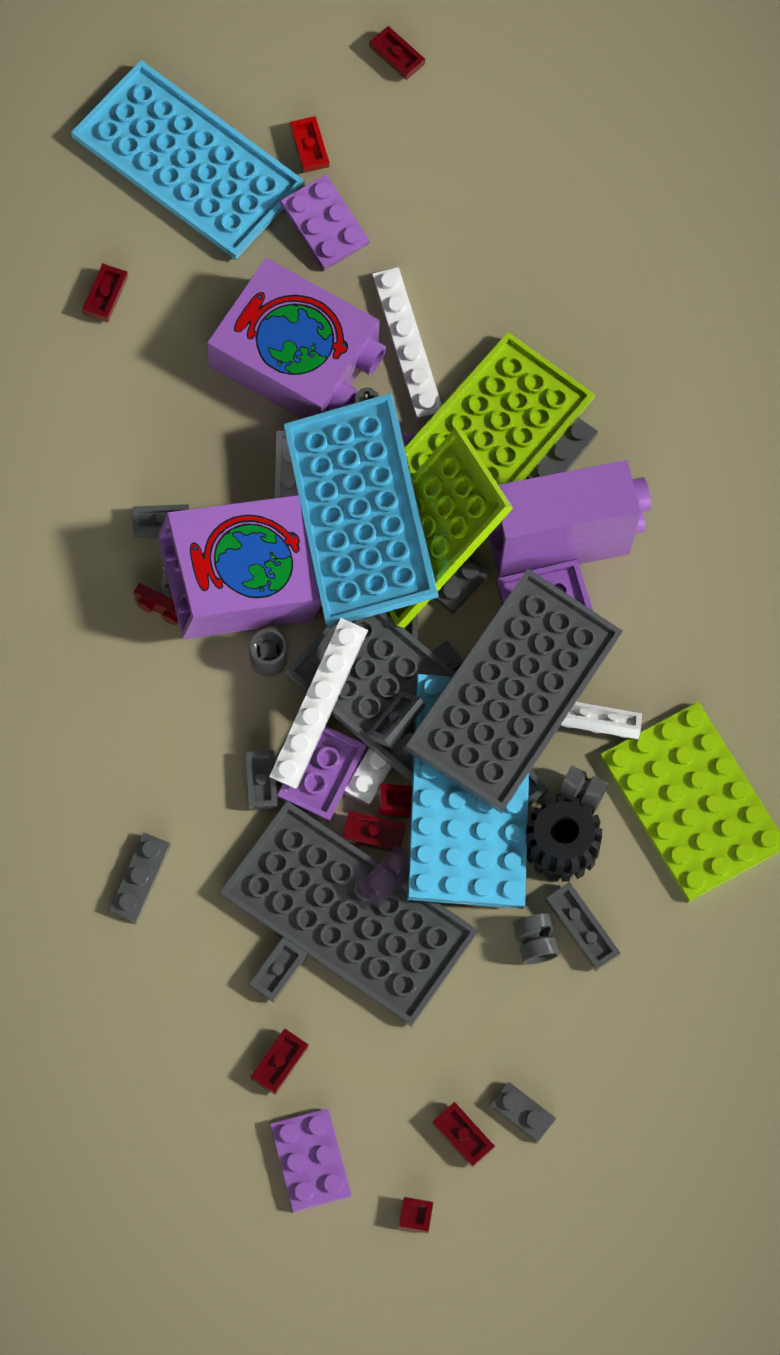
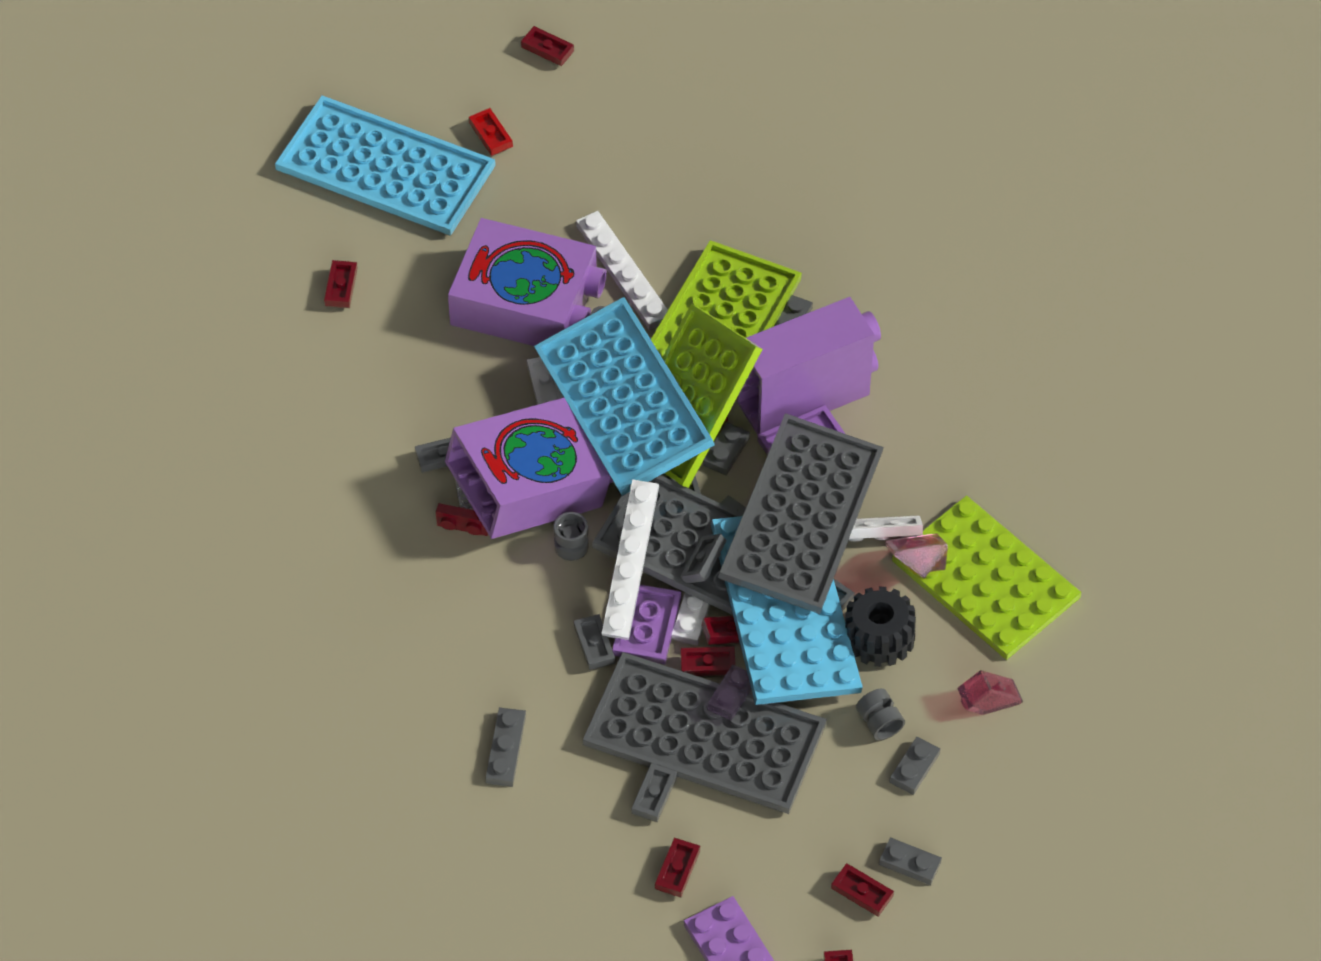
camera: 10 degrees left, 15 degrees down
(324, 222) = (522, 188): medium lavender plate -> none
(557, 1003) = (915, 765): none -> dark grey plate
(579, 786) = (878, 577): dark grey wheel -> none
(582, 926) = (918, 697): dark grey plate -> none
(626, 763) = (920, 553): none -> clear pink slope
(657, 941) = (988, 693): none -> clear pink slope

